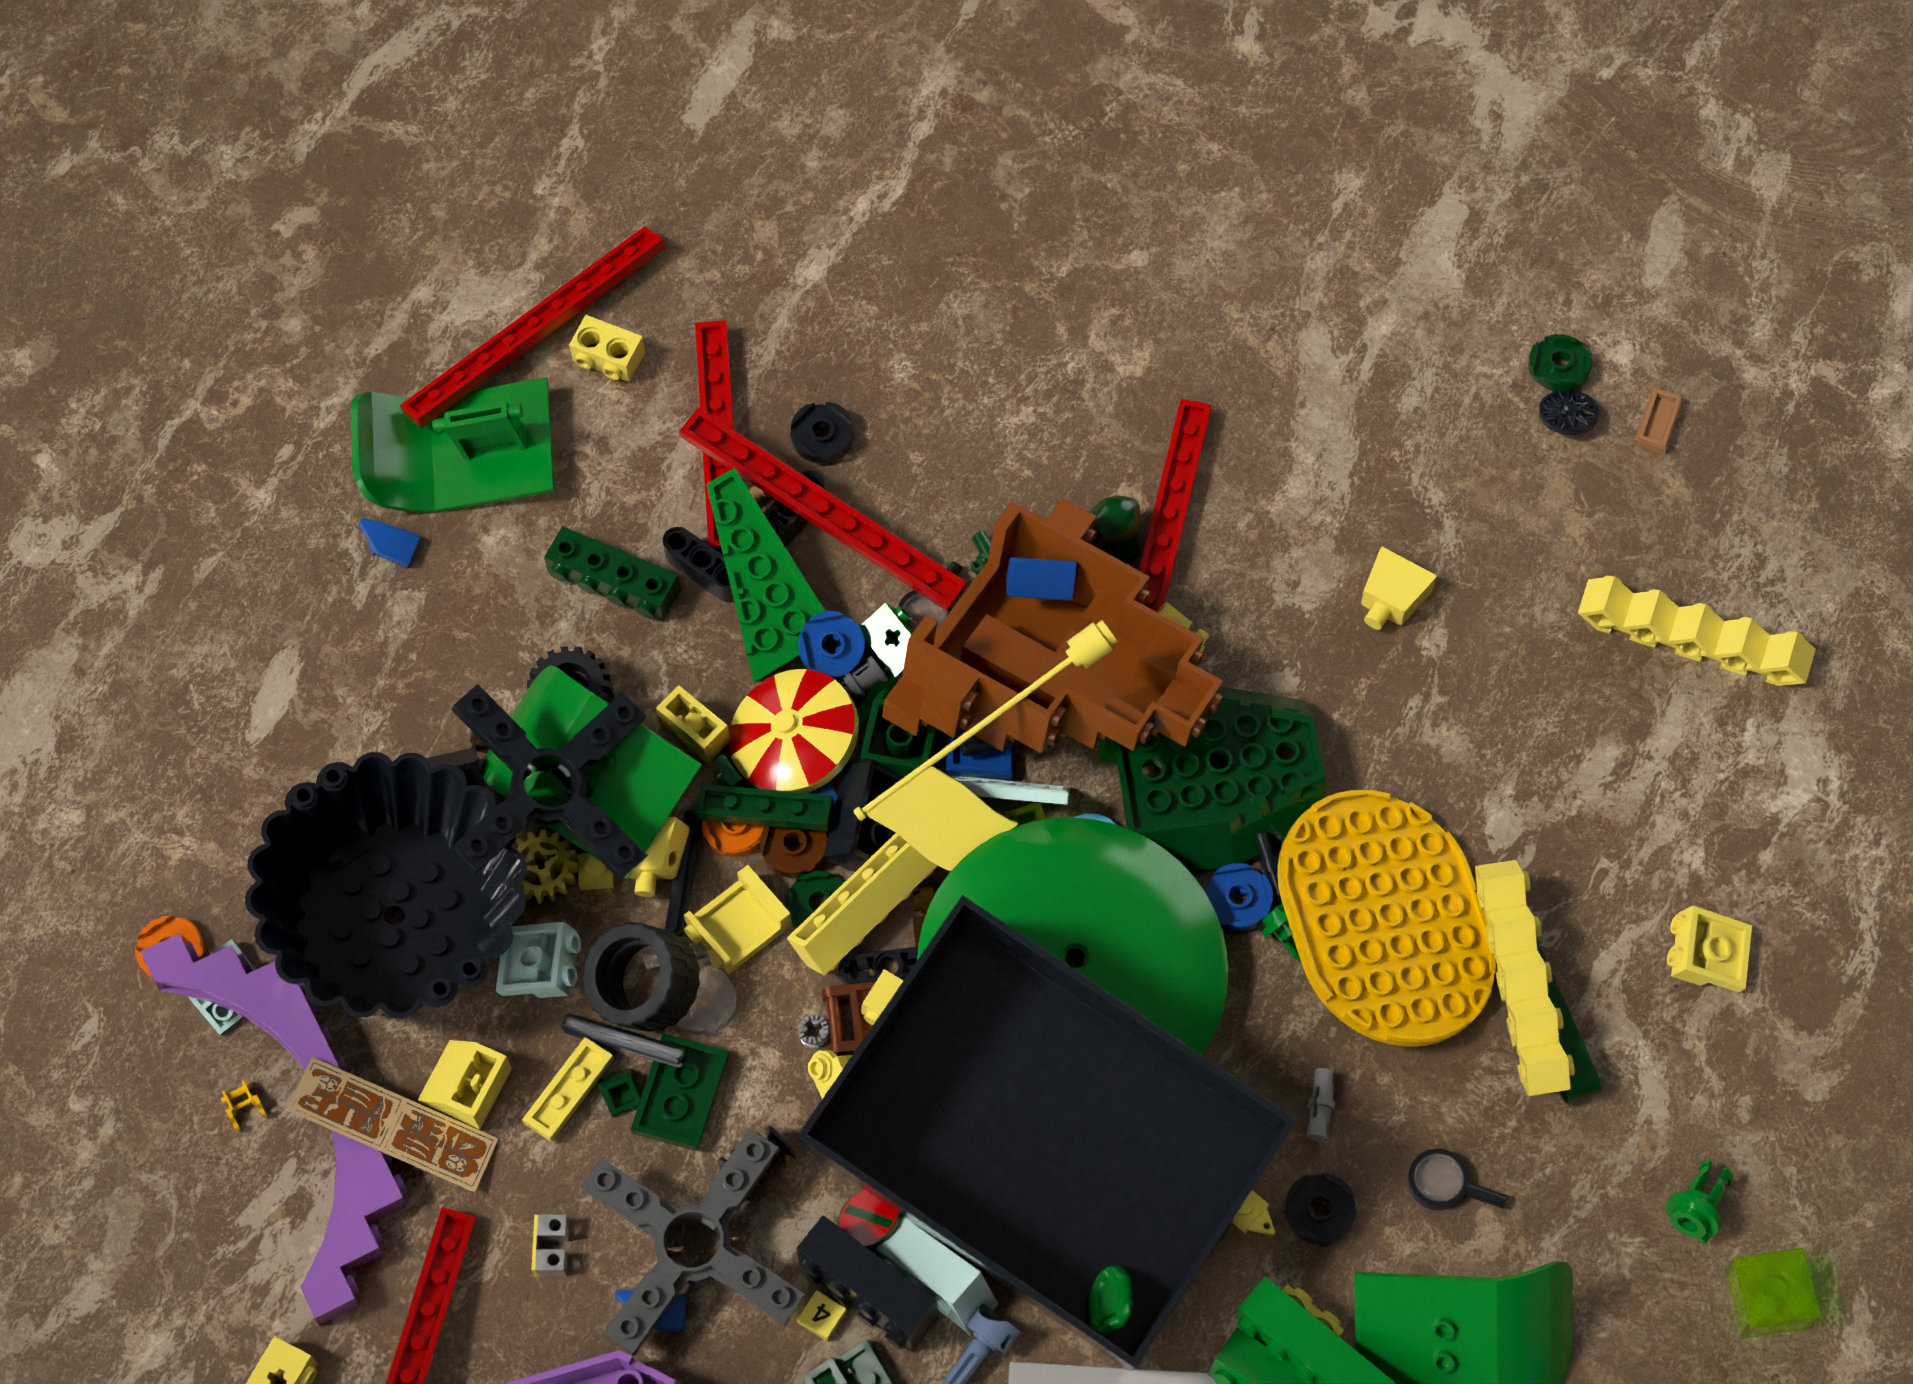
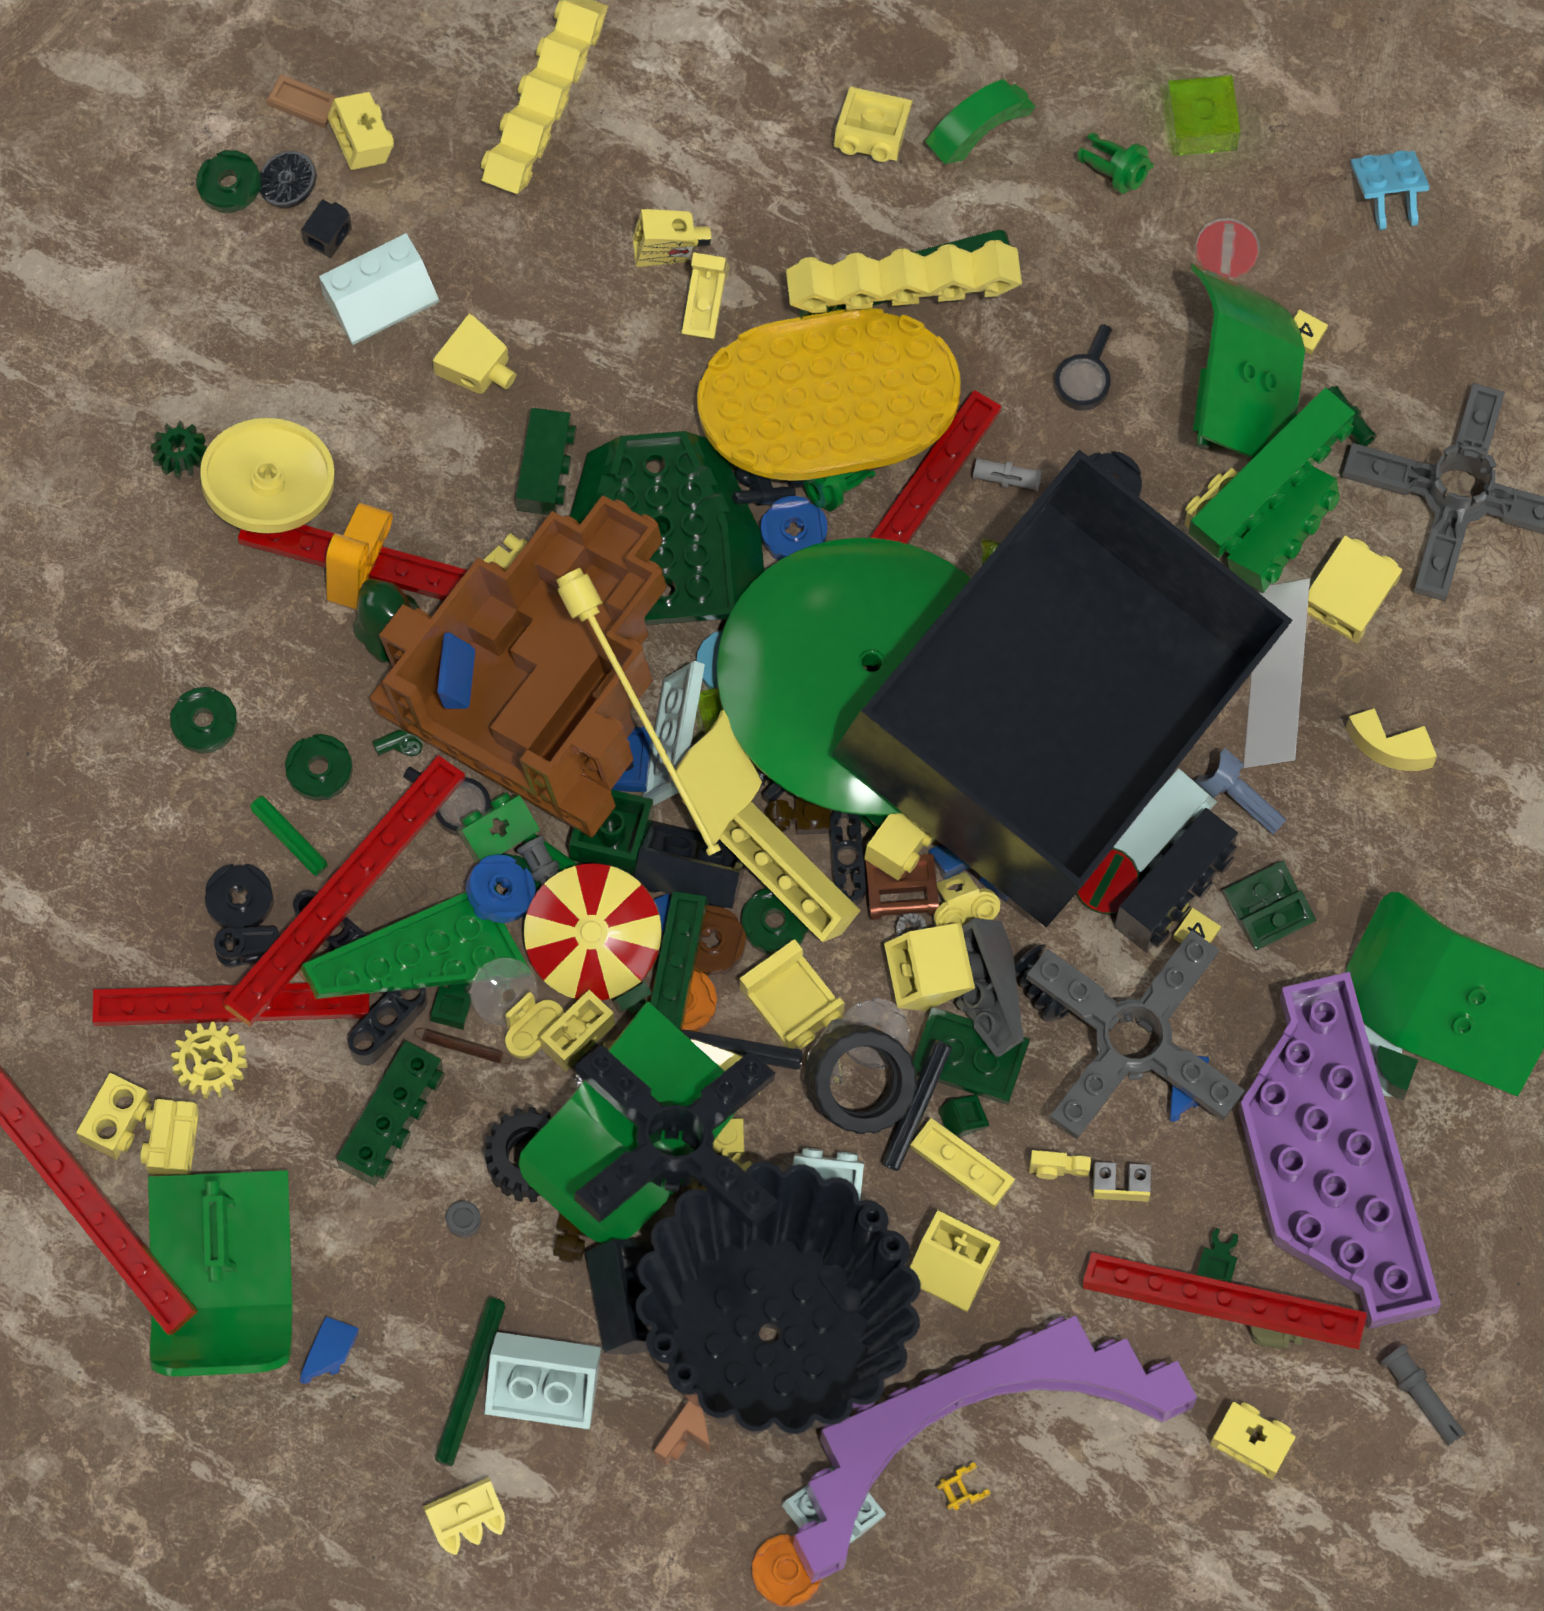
camera: 90 degrees left, 5 degrees up
(232, 664) = (464, 1513): none -> light yellow plate
(356, 715) = (542, 1380): none -> light aqua slope
(358, 662) = (470, 1382): none -> dark green axle
(392, 1124) = (999, 1327): sticker -> none
(459, 1341) = (1217, 1262): none -> dark green plate
(514, 646) = (463, 1219): none -> dark grey tile
(565, 1173) = (1050, 1164): none -> light yellow plate
(586, 396) = (171, 1138): none -> light yellow brick
(660, 417) = (214, 1047): none -> light yellow gear
(681, 641) = (466, 1049): none -> copper piece
(702, 685) = (529, 1024): none -> light yellow bracket
(719, 619) = (452, 1005): none -> dark green plate
(743, 664) = (493, 981): none -> clear dish
(764, 1041) = (929, 967): none -> light yellow slope
(772, 1094) = (995, 998): none -> dark grey wedge
(773, 440) = (248, 943): none -> black piece
(886, 470) = (289, 835): none -> green axle
(957, 507) = (324, 785): none -> dark green tile
(999, 407) = (207, 738): none -> dark green tile
(1111, 1300) = (1209, 655): green piece -> none
(1171, 493) = (354, 553): none -> light orange beam
(1245, 415) = (267, 475): none -> light yellow dish
(1269, 343) = (177, 438): none -> dark green gear
(1288, 660) = (545, 461): none -> dark green brick
(1315, 1033) = (939, 469): none -> red plate
(1458, 499) = (378, 289): none -> light aqua slope
(1489, 794) = (705, 295): none -> light yellow bracket
(1519, 449) = (327, 228): none -> black brick
(1544, 742) = (666, 237): none -> light yellow torso
(1619, 1330) = (1227, 247): none -> clear piece
(1642, 456) = (360, 130): none -> light yellow brick
(1734, 1052) = (977, 116): none -> green arch

